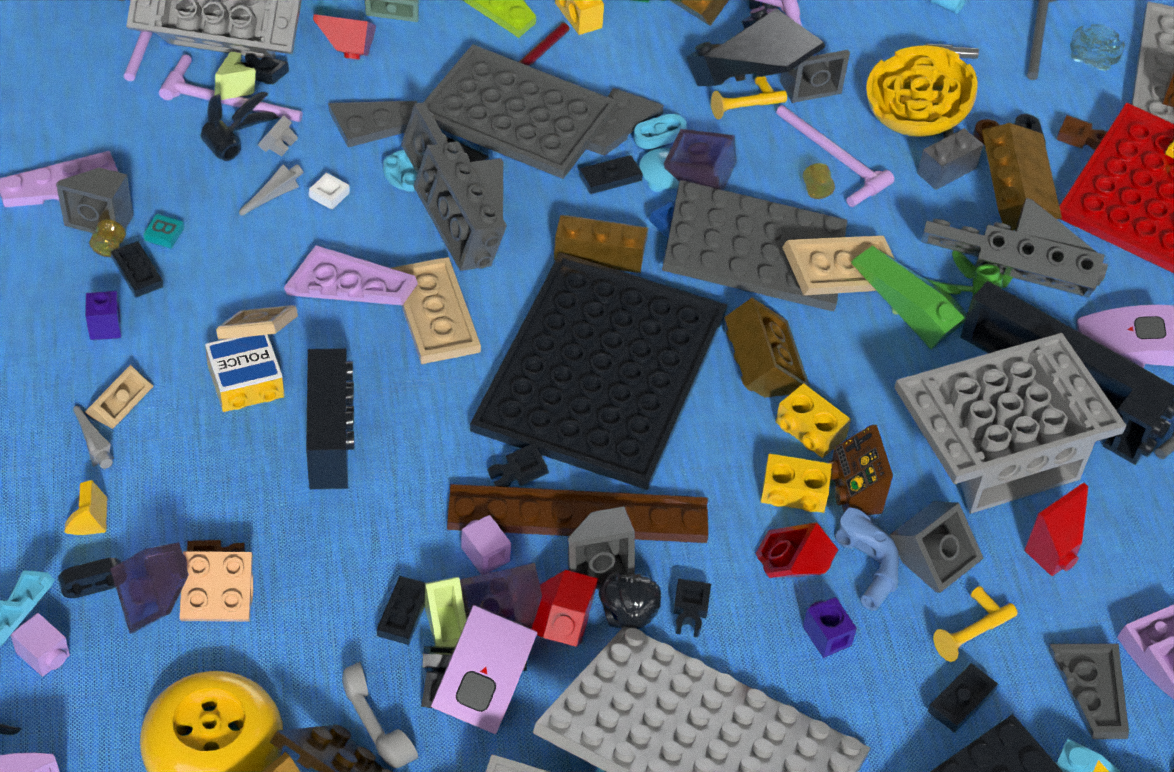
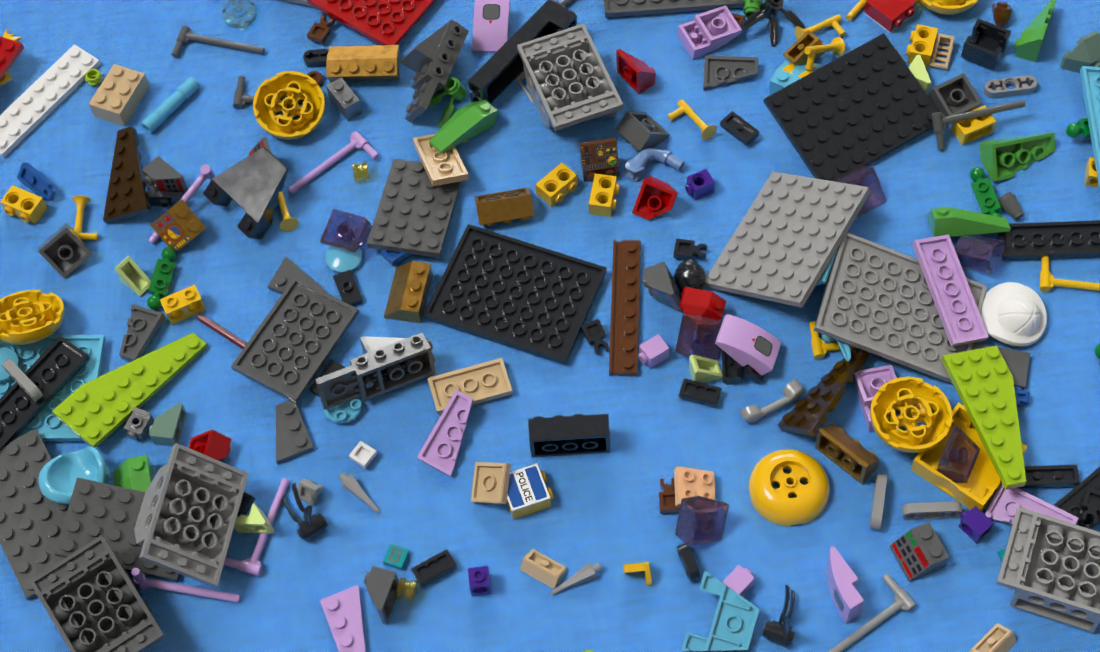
camera: 80 degrees left, 10 degrees up
(658, 131) = (310, 260): medium azure plate -> none

